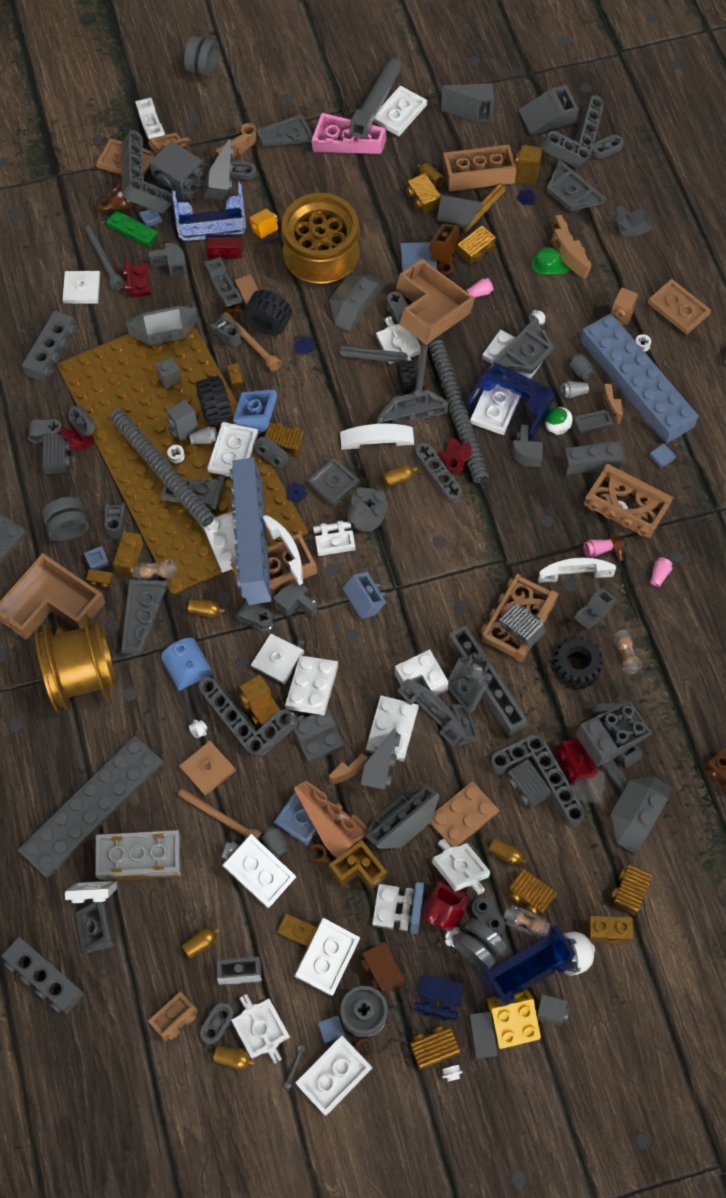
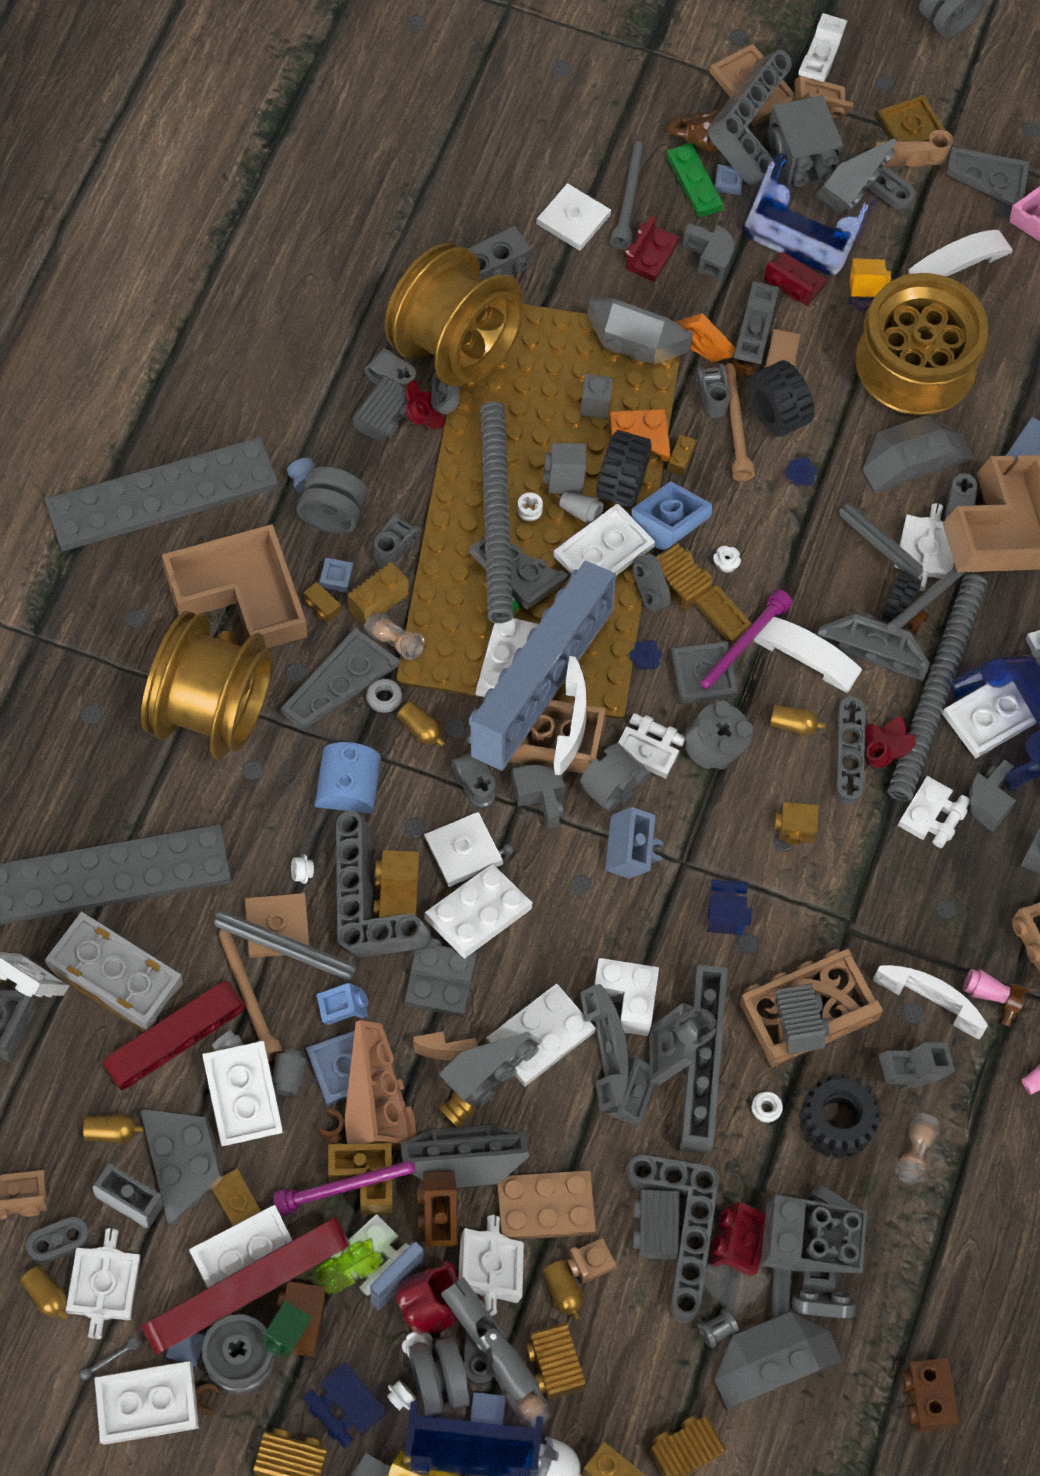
camera: 30 degrees right, 0 degrees up
(34, 516) = (298, 471): none -> sand blue wheel
(61, 375) = (454, 314): none -> pearl gold wheel
(172, 599) = (384, 706): none -> light grey piece
(196, 866) = (174, 1035): none -> dark red beam
(202, 371) = (644, 423): none -> orange wing
(205, 306) = (707, 338): none -> orange wing
(220, 775) = (284, 945): none -> dark grey axle
(222, 130) = (910, 120): none -> pearl gold tile
(252, 929) = (182, 1159): none -> dark grey wing
(275, 785) = (342, 1003): none -> medium blue bracket
(300, 419) = (726, 565): none -> white plate
(302, 182) = (964, 253): none -> white slope
(320, 444) = (723, 614): none -> pearl gold plate
(327, 910) = (289, 1200): none -> magenta piece
(330, 567) = (614, 778): none -> dark grey brick
(340, 973) = (245, 1285): none -> dark red beam
(344, 420) = (777, 604): none -> magenta piece
(379, 797) = (457, 1110): none -> pearl gold wheel
(383, 930) = (335, 1272): none -> clear neon green hinge
(383, 979) = (285, 1330): none -> dark green brick
(412, 855) = (440, 1208): none -> reddish brown brick
(439, 597) = (726, 911): none -> clear blue brick
(441, 527) = (797, 823): none -> pearl gold brick
(465, 970) = (400, 1395): none -> white plate
(498, 476) = (926, 807): none -> white plate
(501, 908) = (500, 1353): none -> dark grey piece
(508, 827) = (590, 1261): none -> medium nougat bracket
(515, 944) = (488, 1408): none -> sand blue tile
(536, 679) = (767, 1098): none -> white plate
(599, 815) = (718, 1328): none -> dark grey bush
(636, 768) = (811, 1303): none -> dark grey plate

